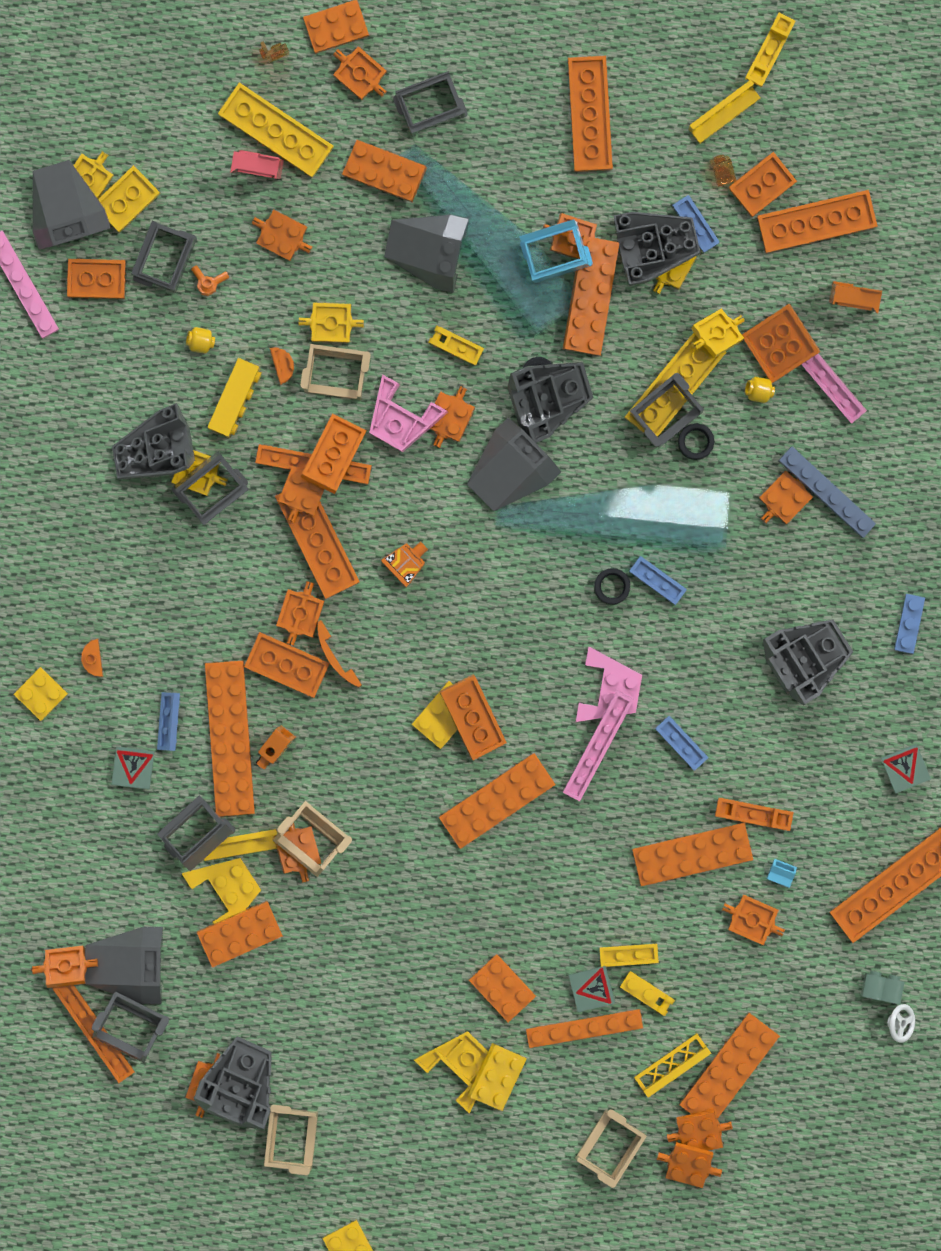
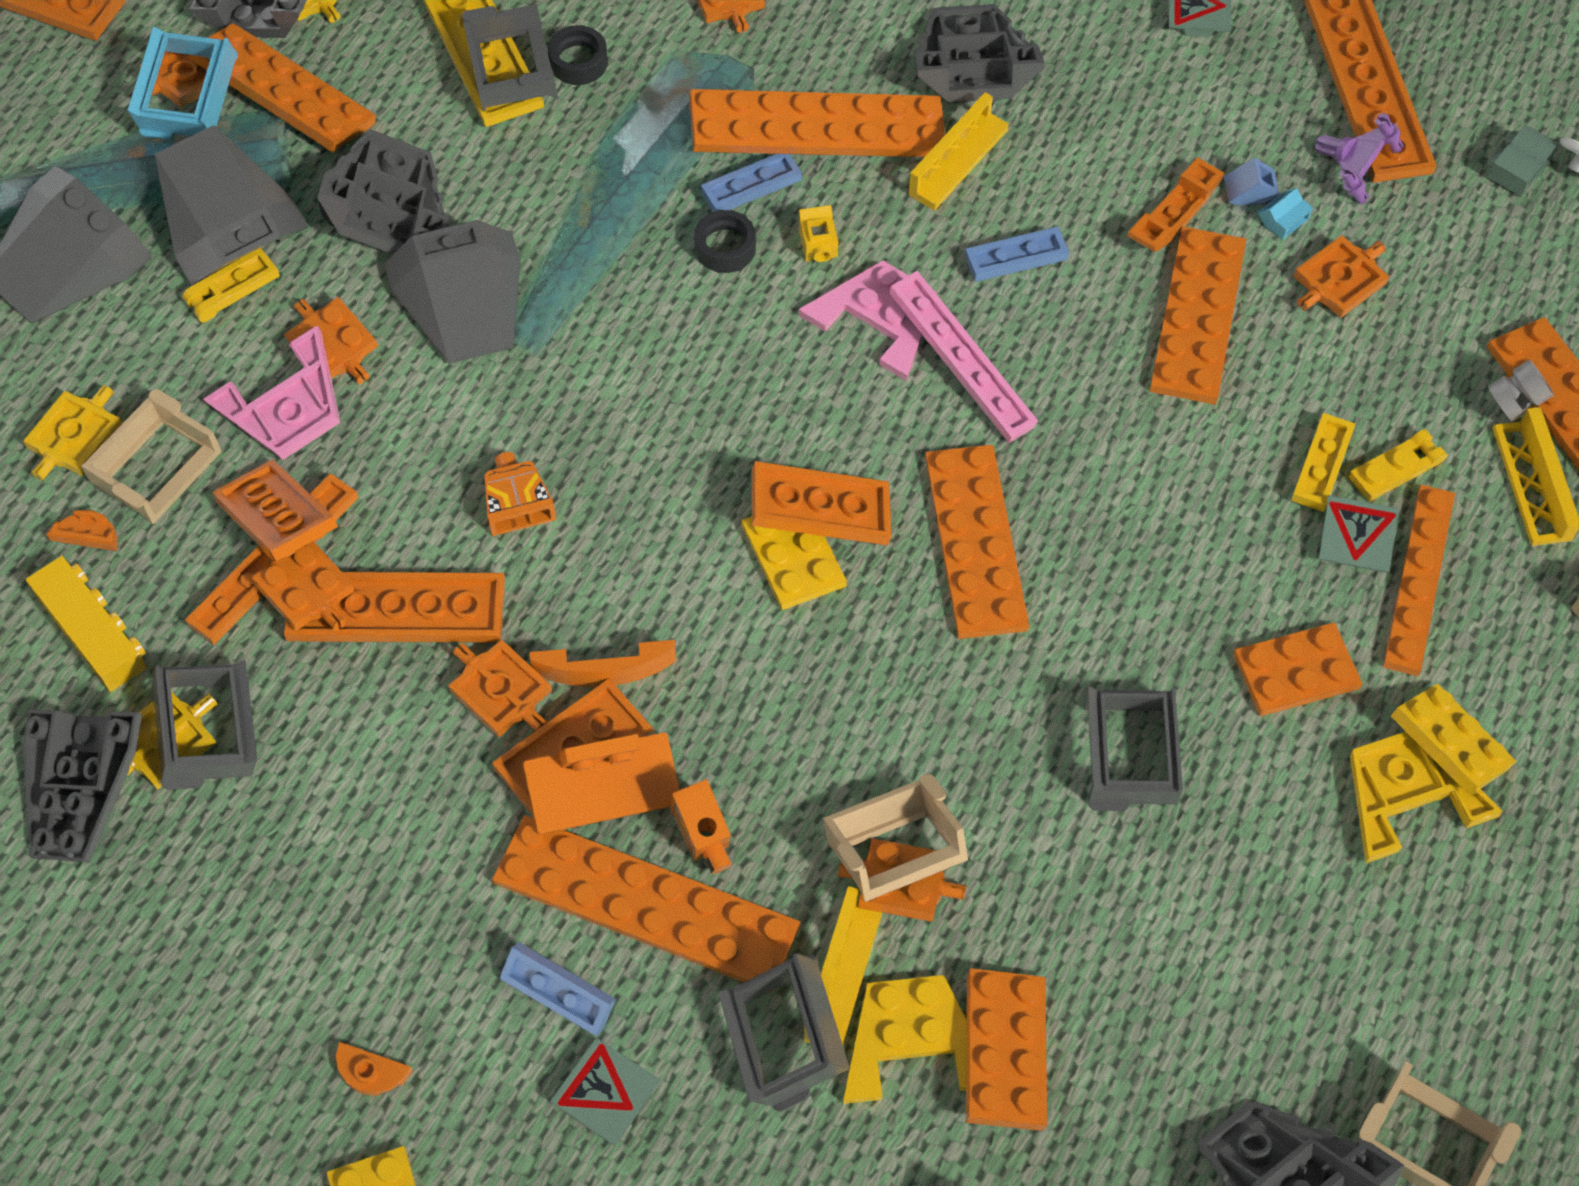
camera: 65 degrees left, 25 degrees down
(273, 689) = (601, 782): none -> orange bracket
(431, 899) = (1117, 795): none -> dark grey piece
(493, 318) = (220, 204): none -> dark grey wedge
(639, 634) = (818, 233): none -> yellow window
(708, 599) = (815, 123): none -> orange plate
(717, 1039) = (1521, 390): none -> light grey wheel
(732, 682) = (956, 154): none -> yellow fence
(791, 848) = (1251, 184): none -> medium blue brick
(835, 898) = (1358, 153): none -> medium lavender axle

